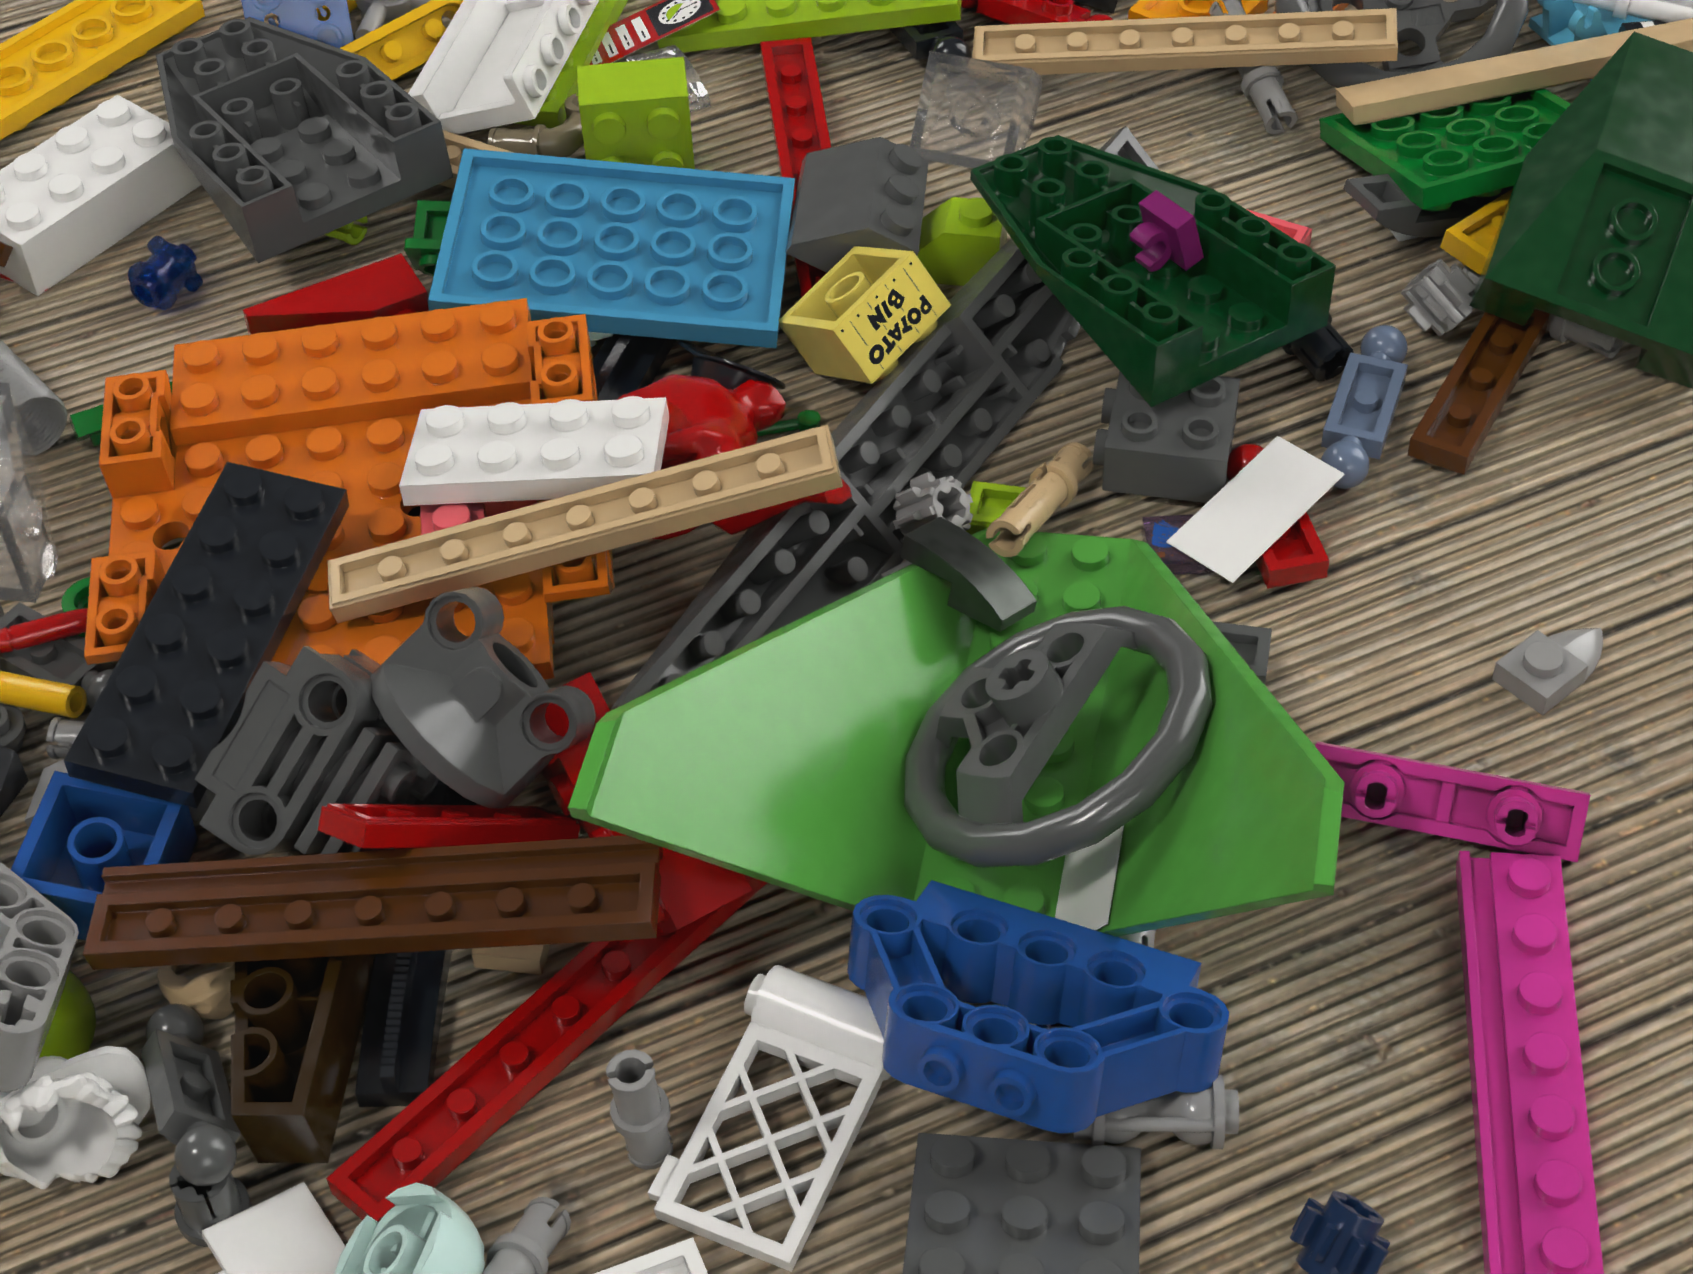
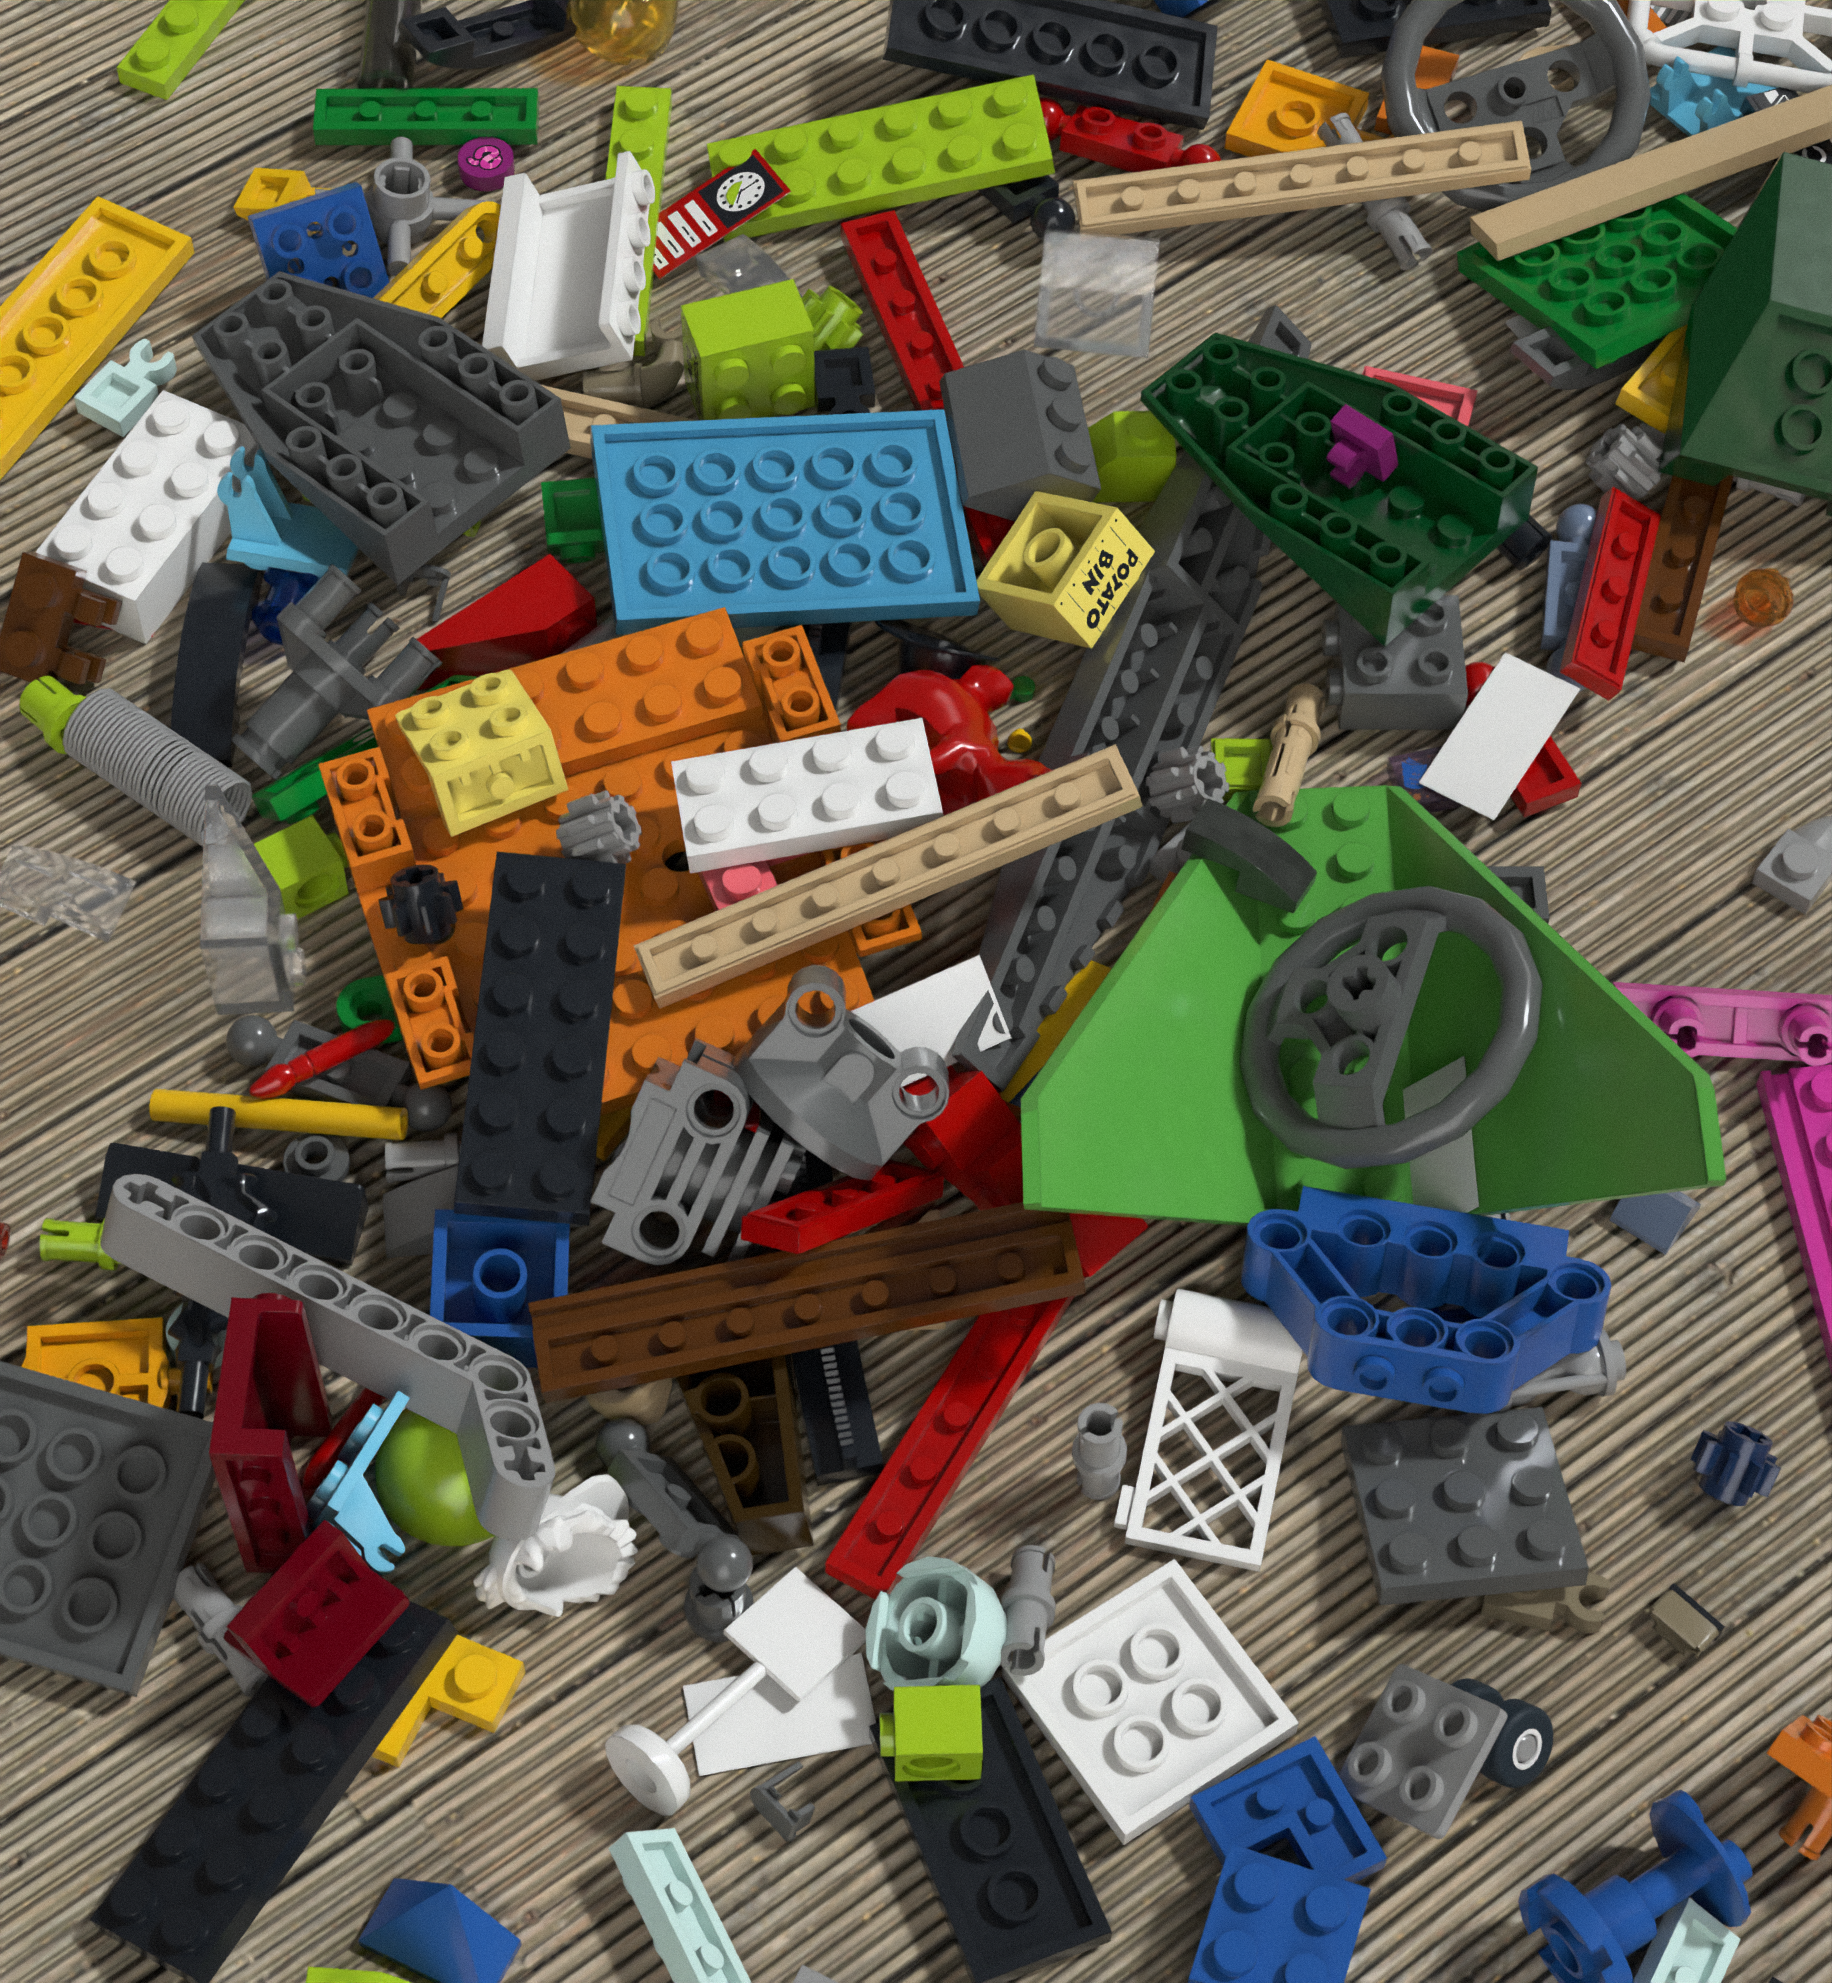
camera: 15 degrees left, 10 degrees up
(73, 482) = (305, 866): none -> lime brick
(75, 310) = (213, 657): none -> black slope
(89, 95) = (122, 394): none -> light aqua plate
(151, 505) = (421, 904): none -> black gear
(155, 317) = (328, 674): none -> dark grey wheel
(165, 205) = (276, 532): none -> medium azure plate
(254, 386) = (483, 750): none -> light yellow bracket
(285, 263) = (434, 575): none -> dark grey piece
(335, 457) = (599, 829): none -> light grey gear
(599, 663) = (935, 1011): none -> white sticker
(722, 112) = (833, 319): none -> lime gear
(723, 152) = (844, 381): none -> black plate
(1313, 971) = (1656, 1217): none -> sand blue slope
(1396, 401) = (1610, 594): none -> red tile
(1555, 426) = (1763, 597): none -> clear orange plate

